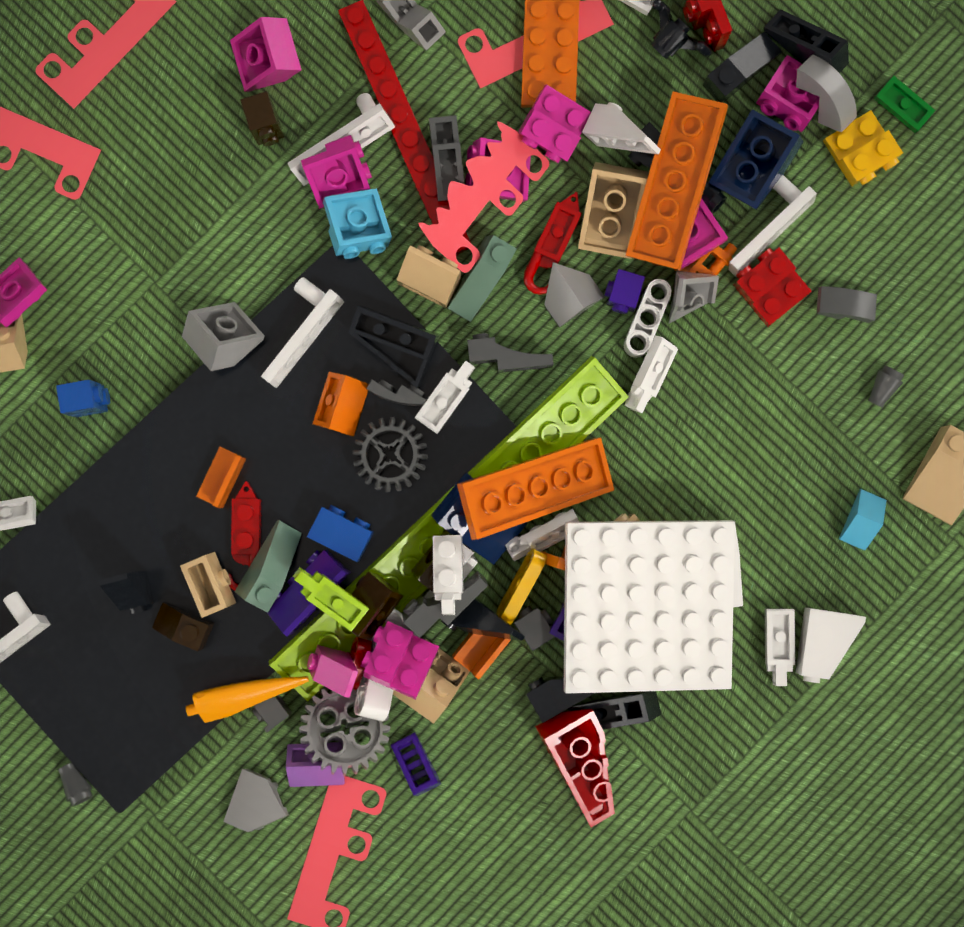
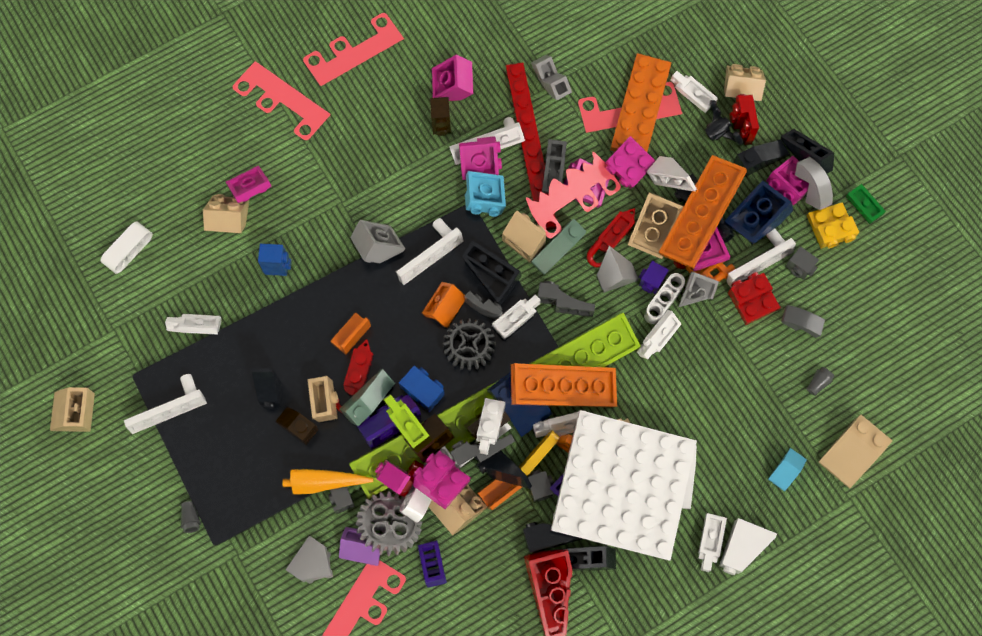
camera: 10 degrees right, 15 degrees down
(831, 219) = (802, 263): none -> dark grey brick

